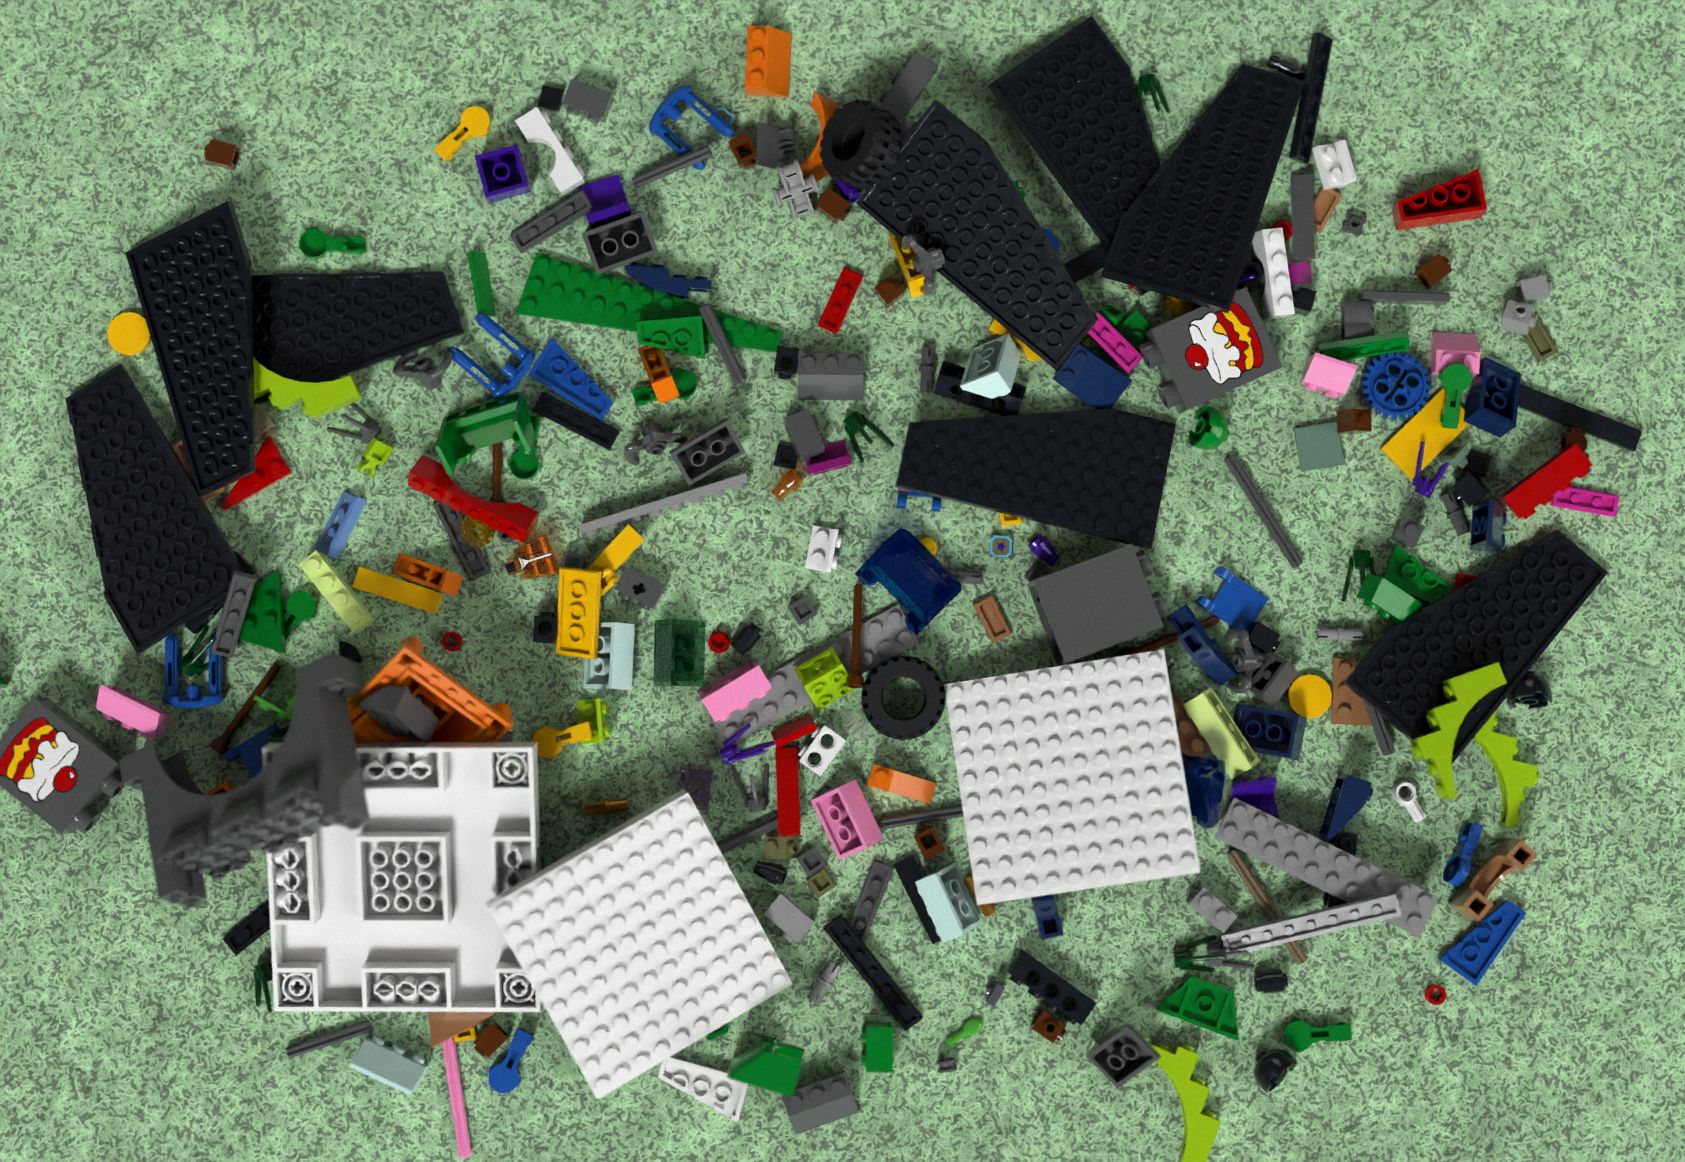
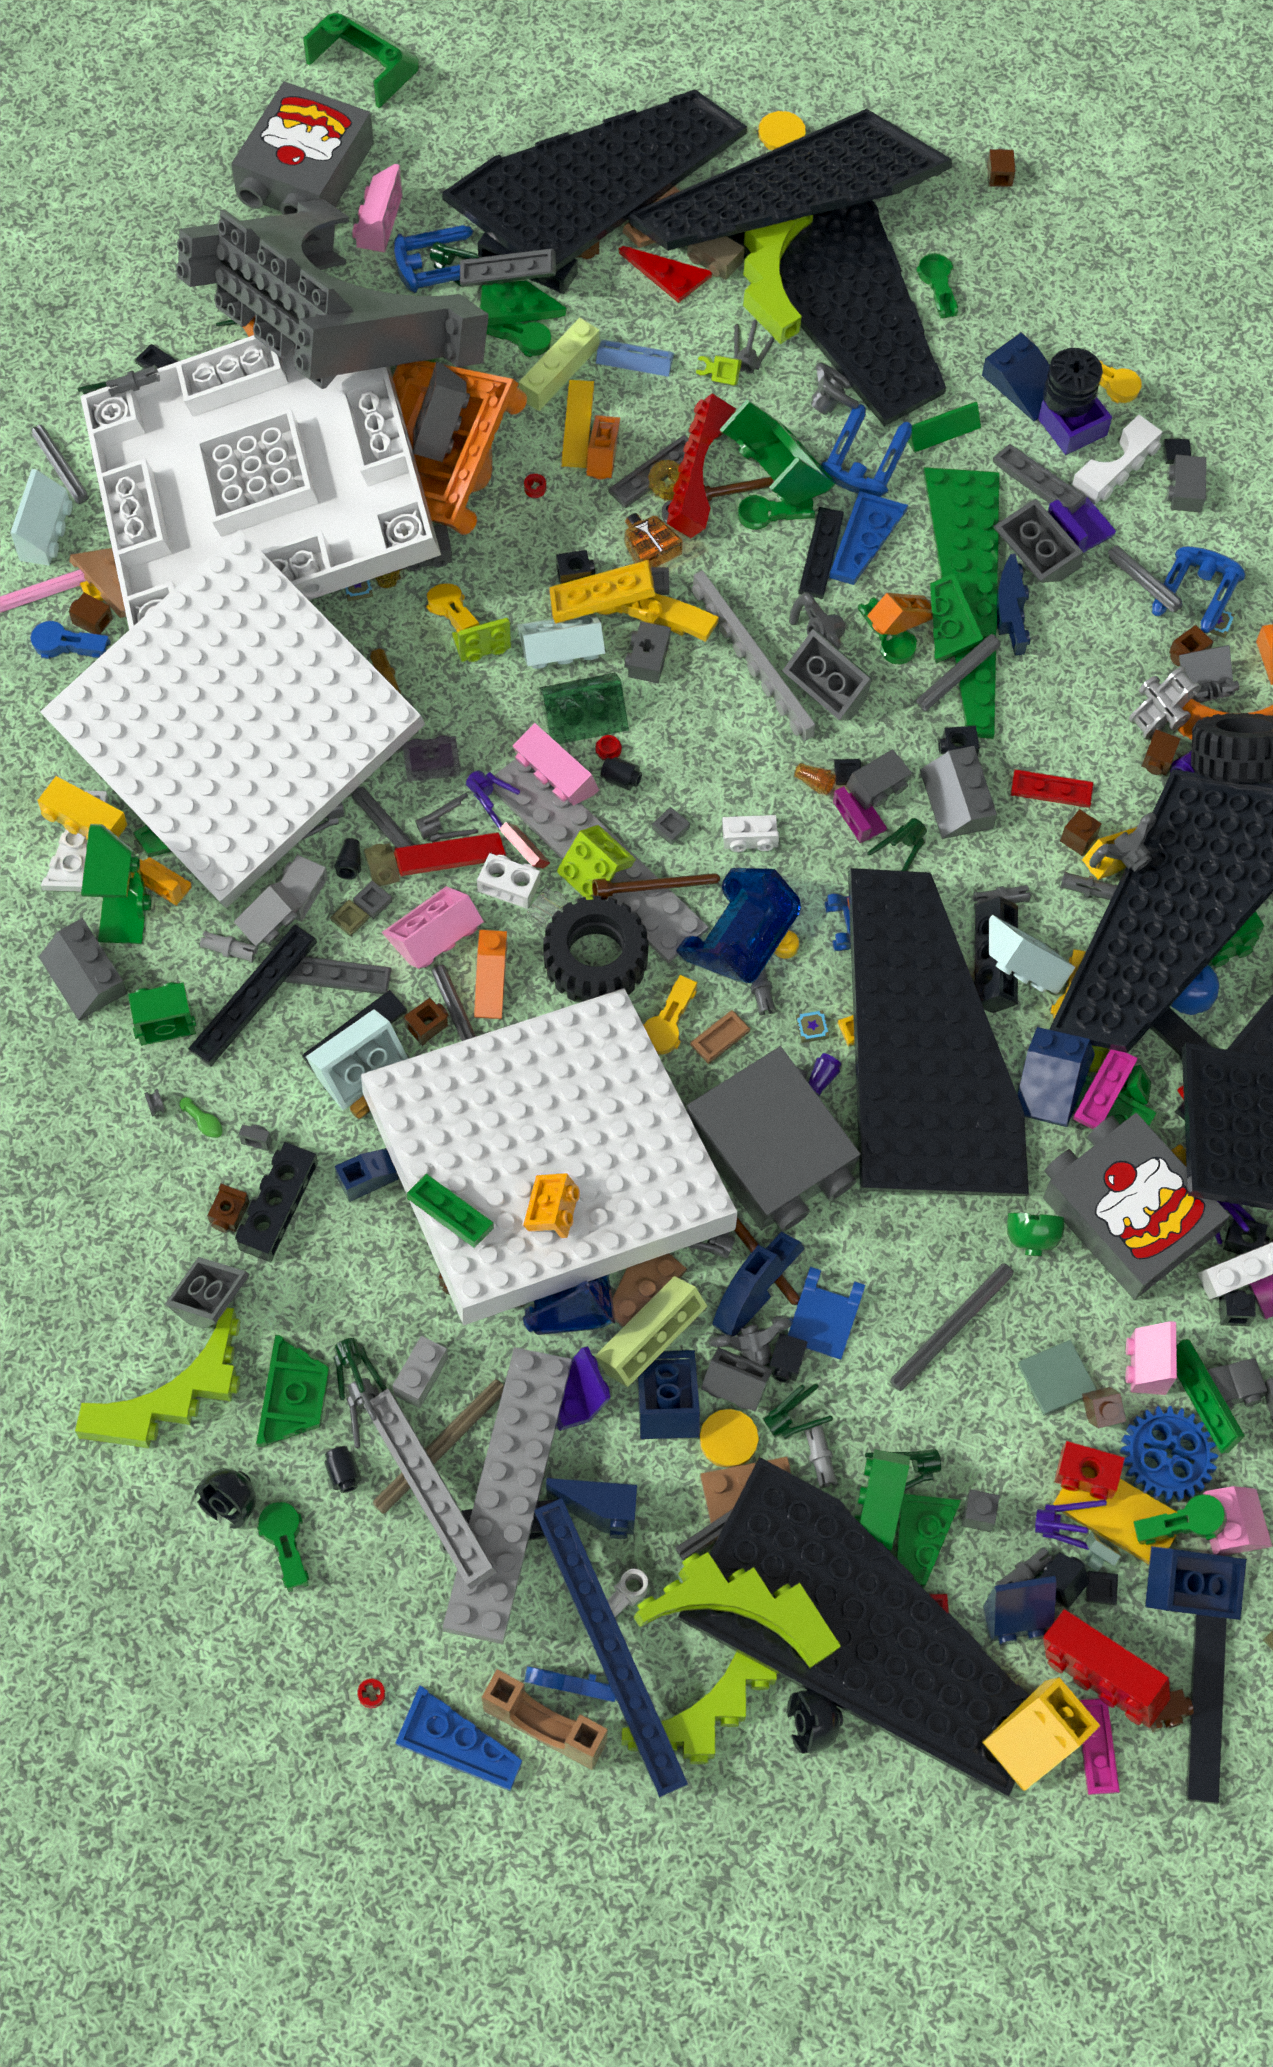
camera: 75 degrees right, 20 degrees down
(280, 964) = (133, 380): none -> dark grey pin
(449, 201) = (1019, 374): none -> dark blue slope
(486, 180) = (1072, 382): none -> black wheel
(685, 1080) = (78, 809): none -> yellow brick
(753, 1025) = (164, 881): none -> light orange bracket
(812, 947) = (268, 914): none -> light grey brick
(934, 299) = (1070, 882): none -> dark grey pin
(983, 662) = (663, 1028): none -> yellow piece
(1121, 864) = (450, 1210): none -> green plate
(1133, 787) = (552, 1204): none -> light orange bracket
(1307, 656) = (779, 1420): none -> dark green plant
(1388, 454) = (1104, 1464): none -> red brick
(1452, 821) = (611, 1648): none -> dark blue plate
(1576, 538) = (1041, 1732): none -> yellow slope

